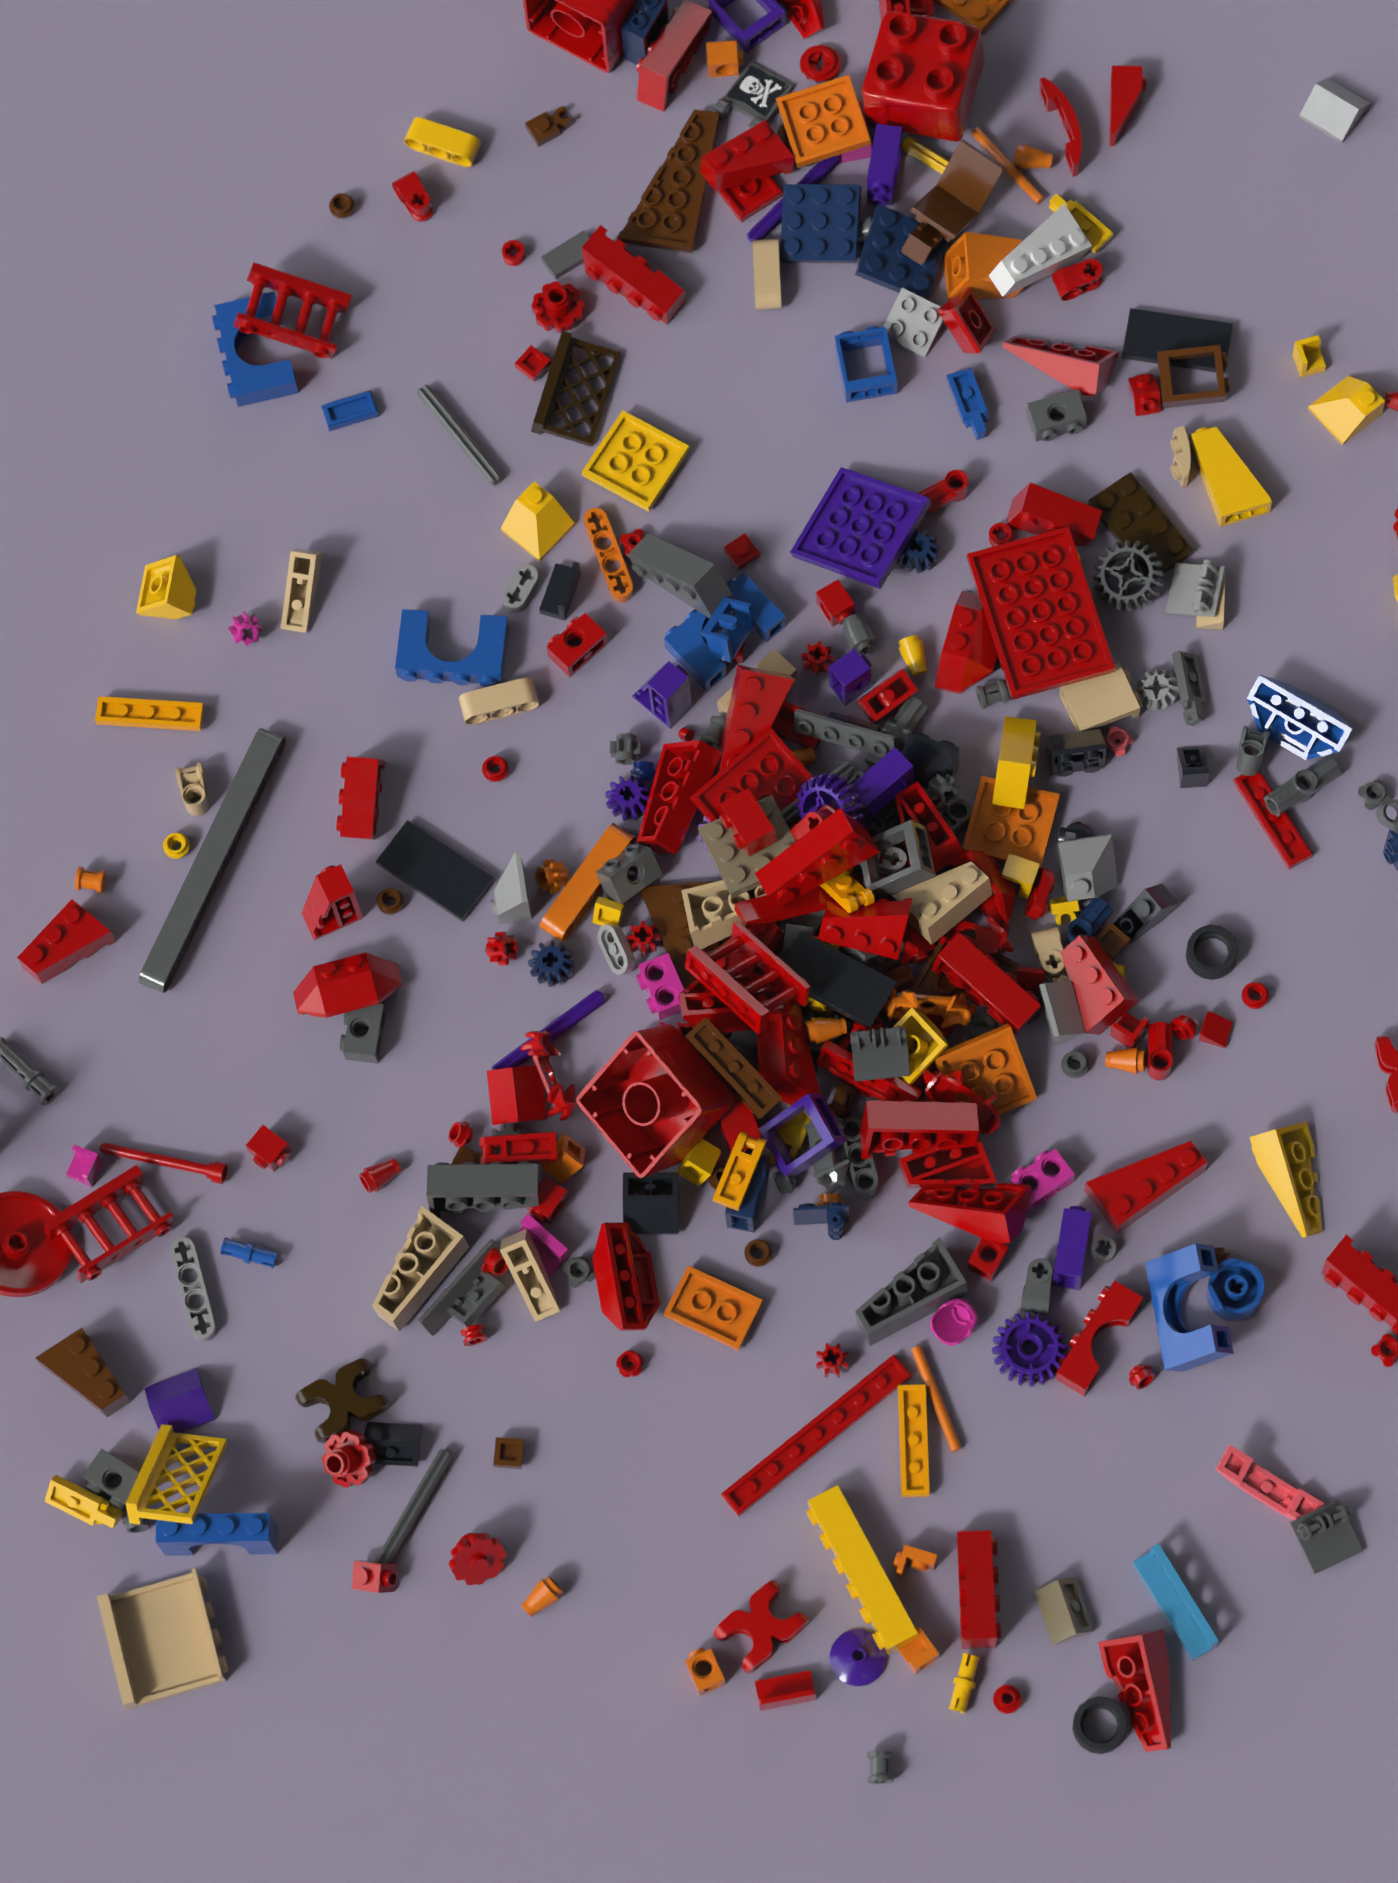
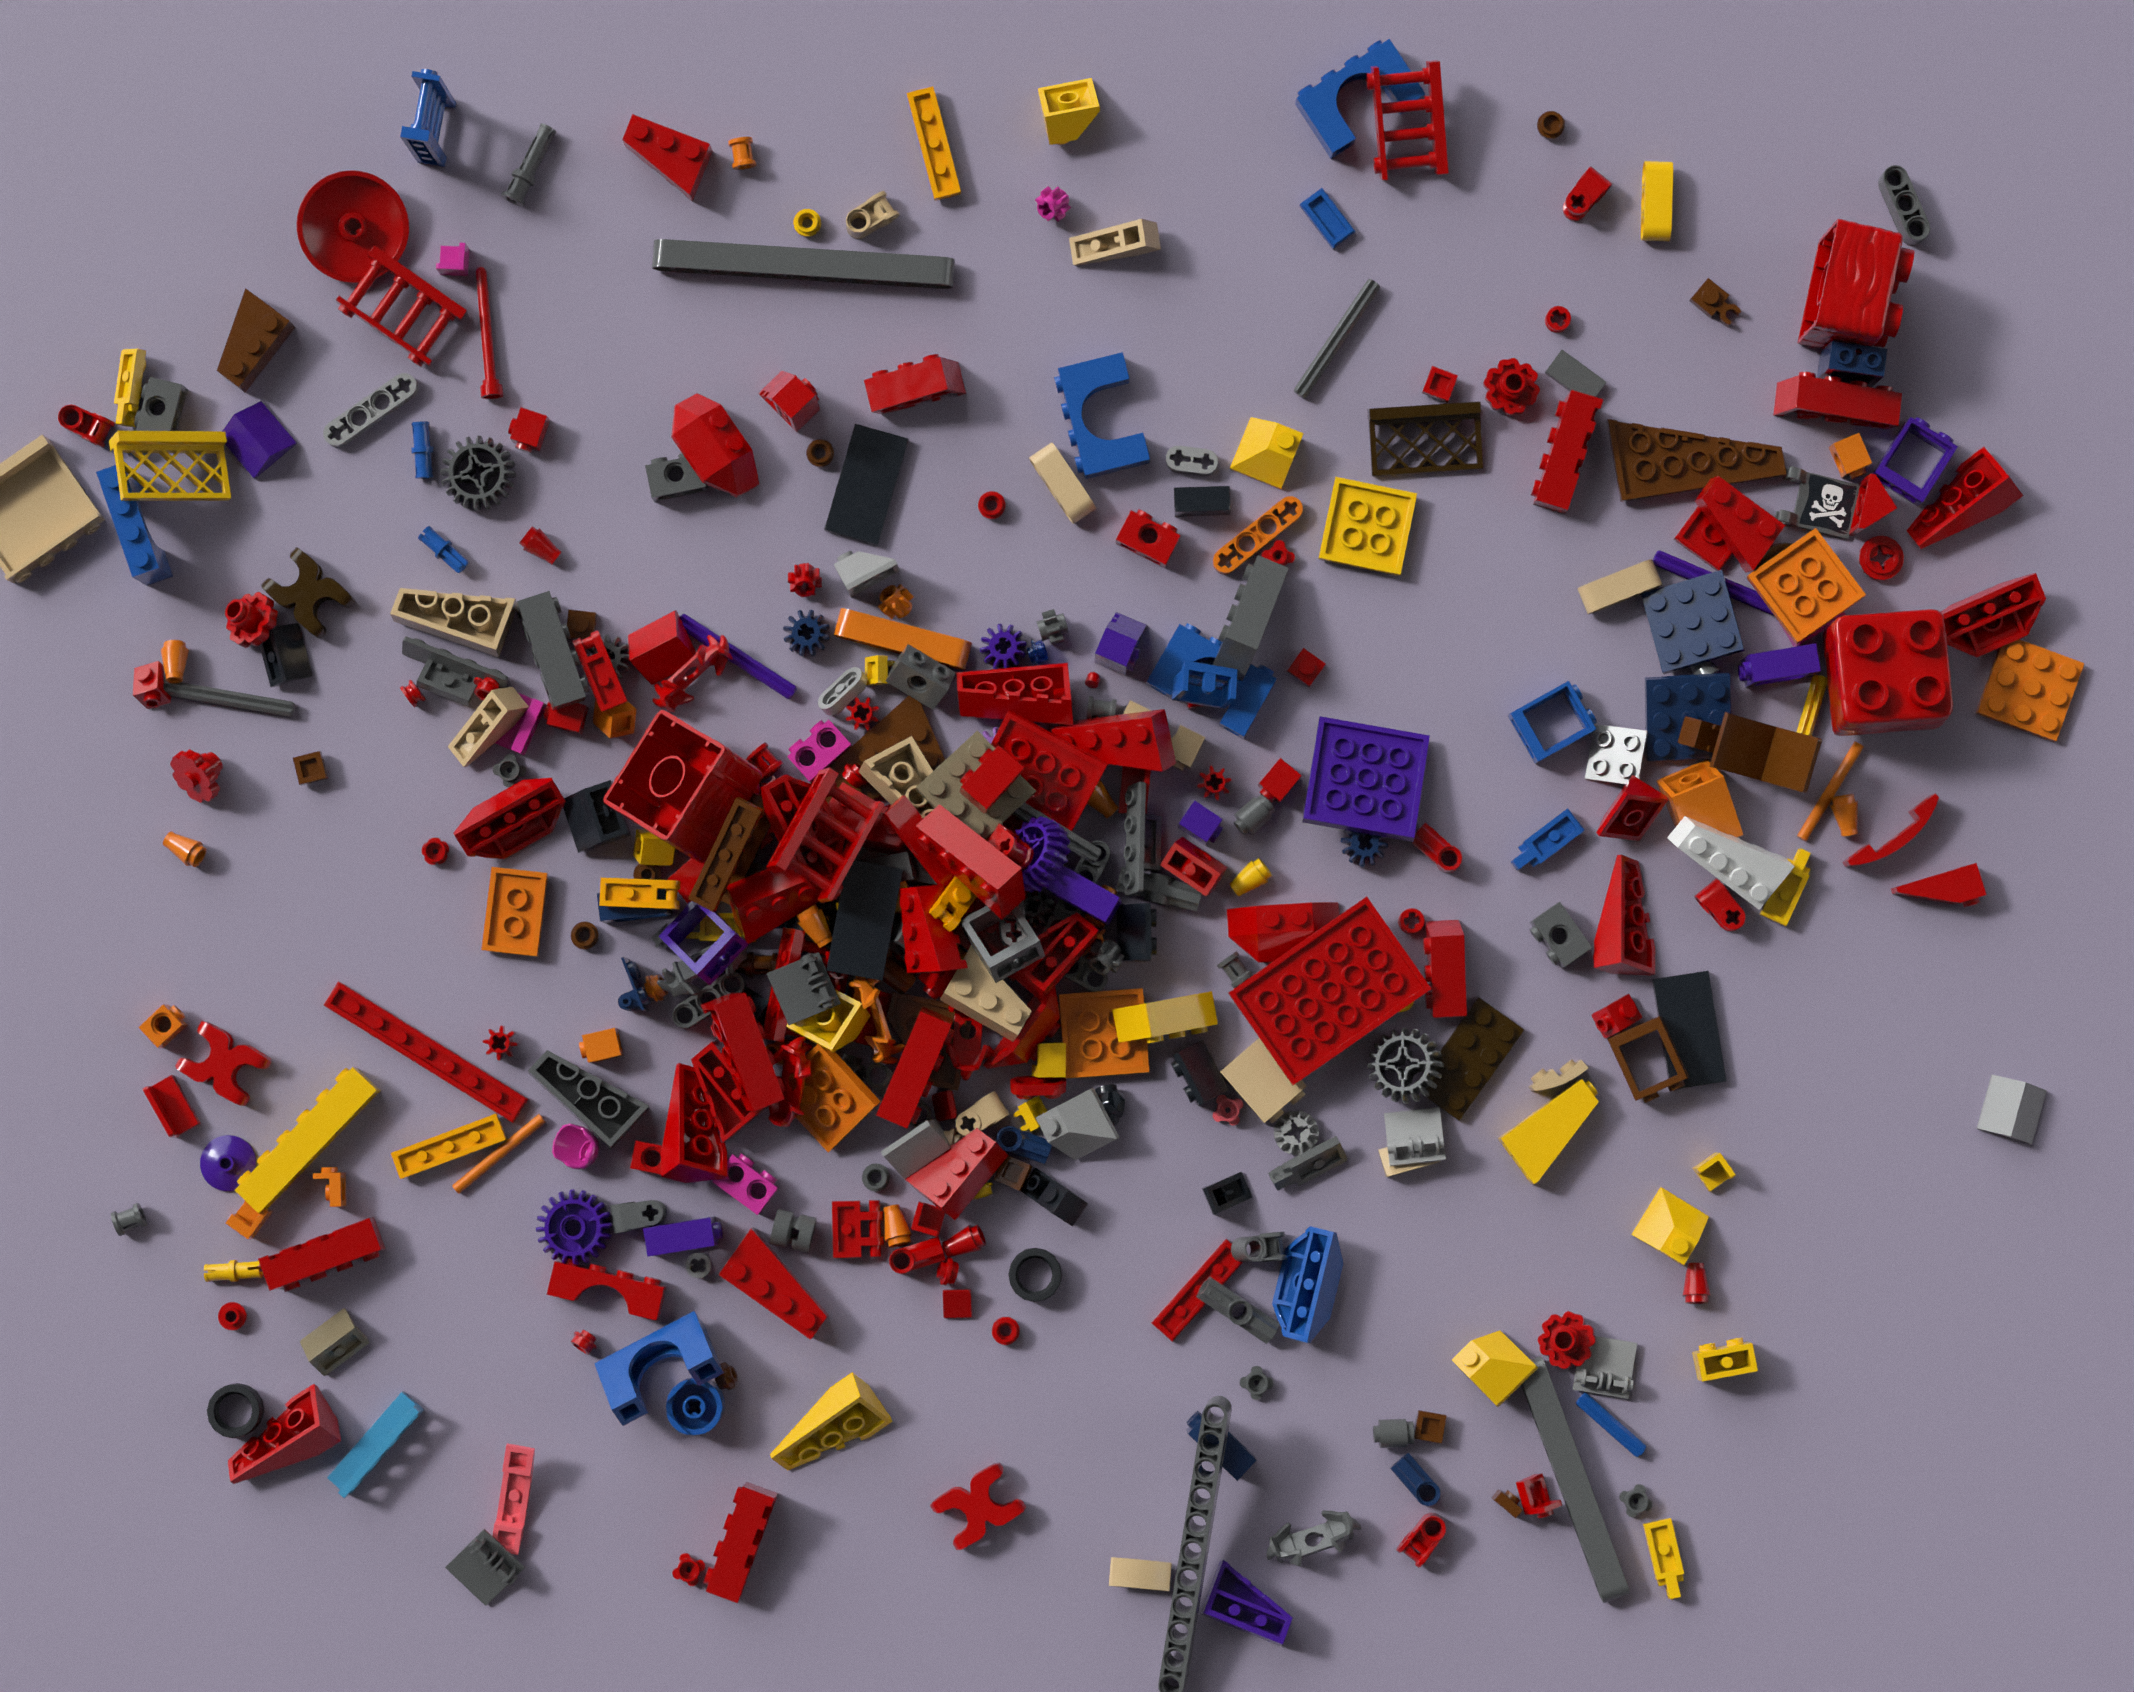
camera: 65 degrees right, 15 degrees up
(104, 1555) = (90, 426): none -> red piece
(279, 1206) = (466, 475): none -> dark grey gear
(350, 1263) = (443, 549): none -> blue axle
(358, 1545) = (174, 660): none -> orange cone
(460, 1134) = (606, 608): red plate -> none
(771, 52) = (1871, 504): none -> red slope
(867, 1268) = (601, 1045): none -> orange brick
(1101, 1148) = (783, 1229): none -> dark grey wheel
(1115, 1103) = (847, 1229): none -> red plate
(1161, 1002) = (965, 1241): none -> red cone

